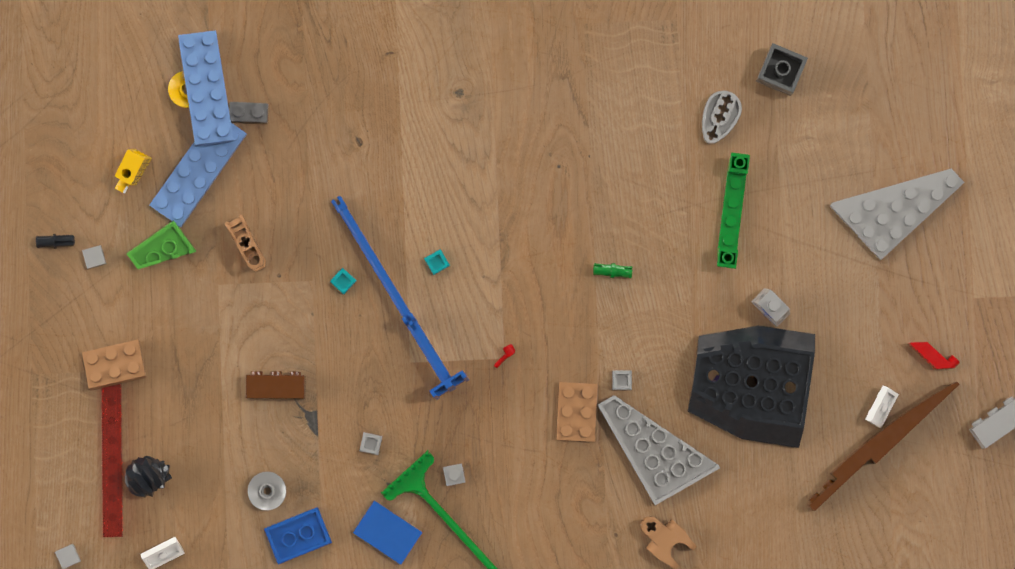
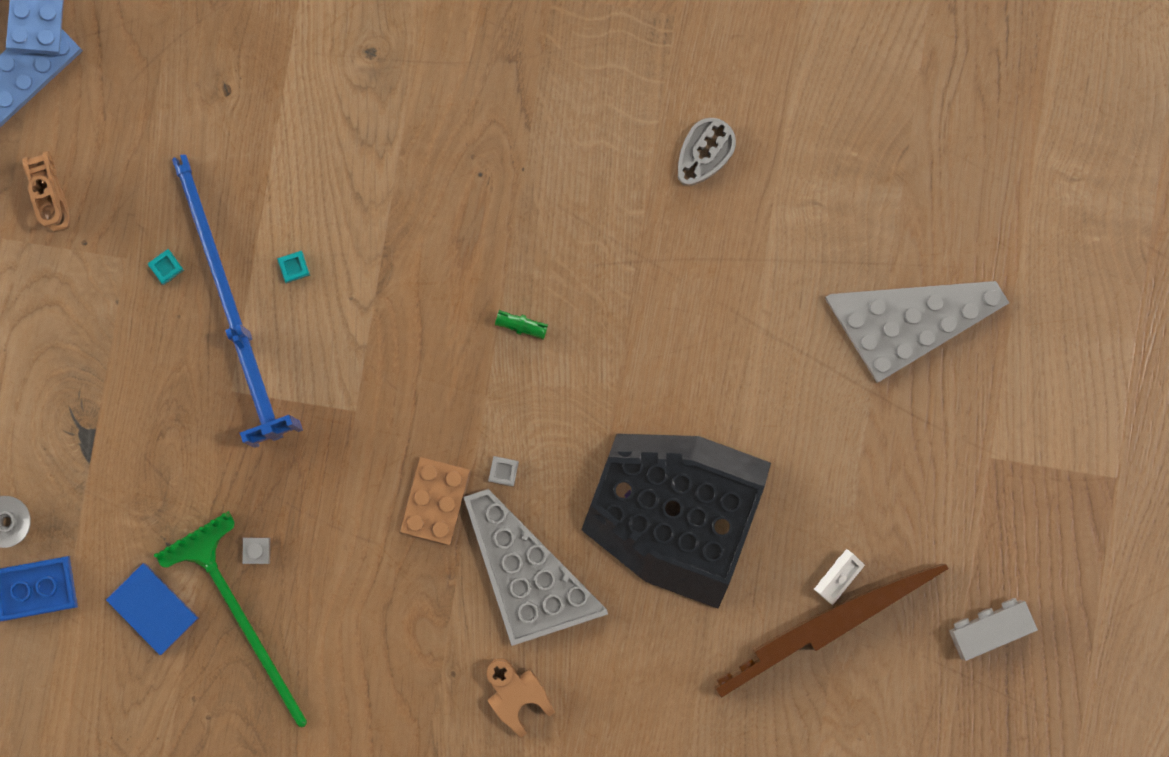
camera: 15 degrees right, 0 degrees up
(248, 112) = (90, 22): flat silver plate -> none
(275, 385) = (46, 385): reddish brown brick -> none
(371, 443) = (156, 487): light grey tile -> none
(509, 351) = (363, 402): red hand -> none
(732, 210) = (695, 277): green slope -> none
(771, 306) = (720, 415): light grey torso -> none
(781, 69) = (798, 105): dark grey brick -> none
(933, 357) = (921, 524): red piece -> none

